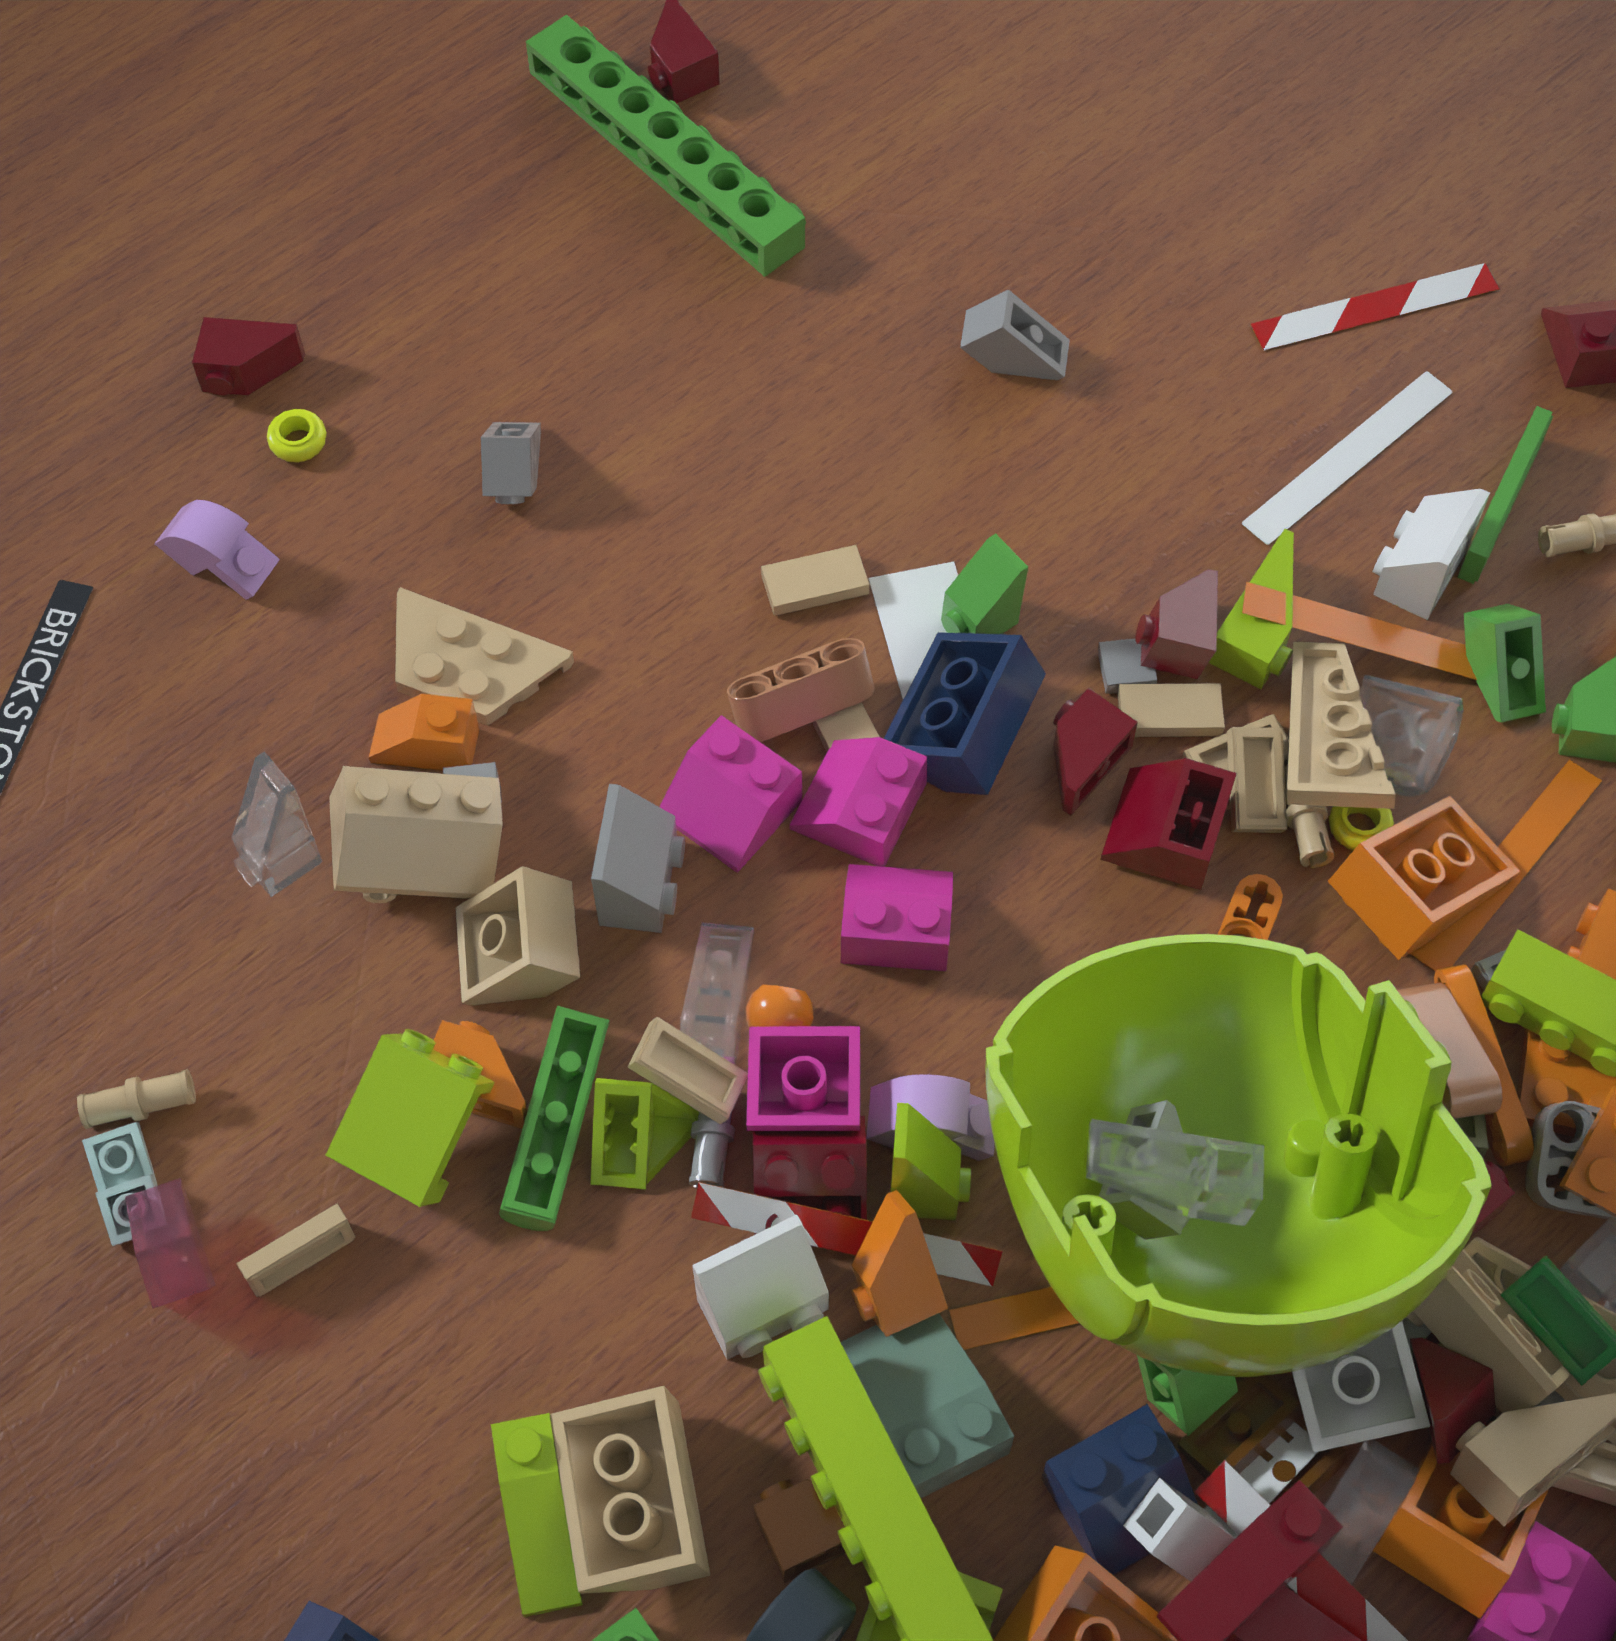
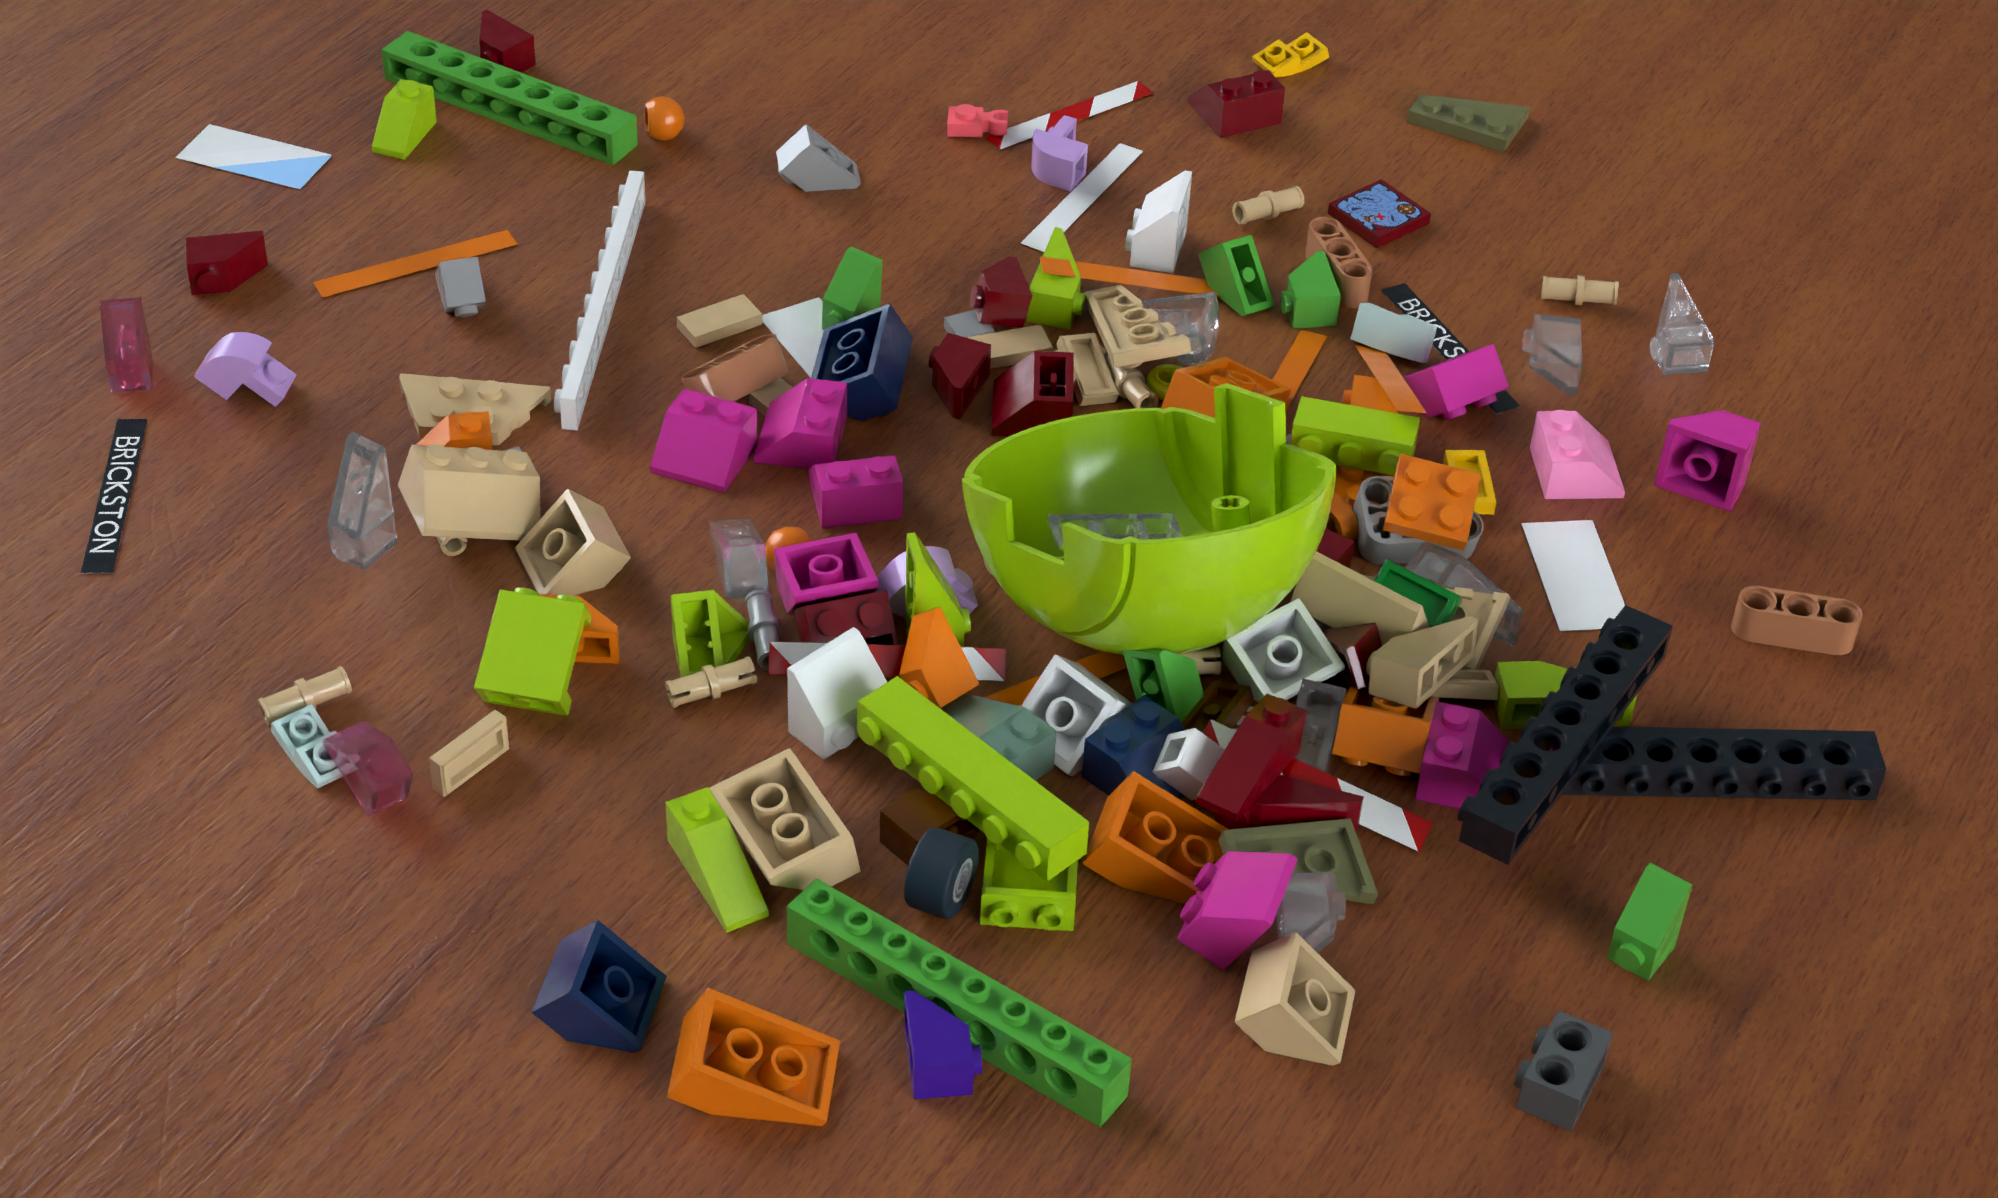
camera: 20 degrees left, 20 degrees down
(86, 483) = (126, 345): none -> clear pink slope
(292, 421) = (281, 304): neon yellow piece -> none
(338, 175) = (254, 156): none -> sticker
(477, 395) = (413, 263): none -> orange sticker
(526, 158) = (404, 119): none -> lime slope
(553, 1120) = (641, 645): bright green brick -> none
(620, 1204) = (711, 682): none -> tan pin
(635, 863) = (649, 487): light grey slope -> none
(671, 527) = (600, 304): none -> white plate
(688, 1070) = (737, 581): tan tile -> none
(844, 220) = (663, 118): none -> orange piece
(1055, 1388) = (1073, 705): none -> white slope
(1239, 296) = (972, 121): none -> coral plate
(1330, 391) = (1058, 156): none -> lavender brick
(1505, 495) = (1202, 193): bright green tile -> none

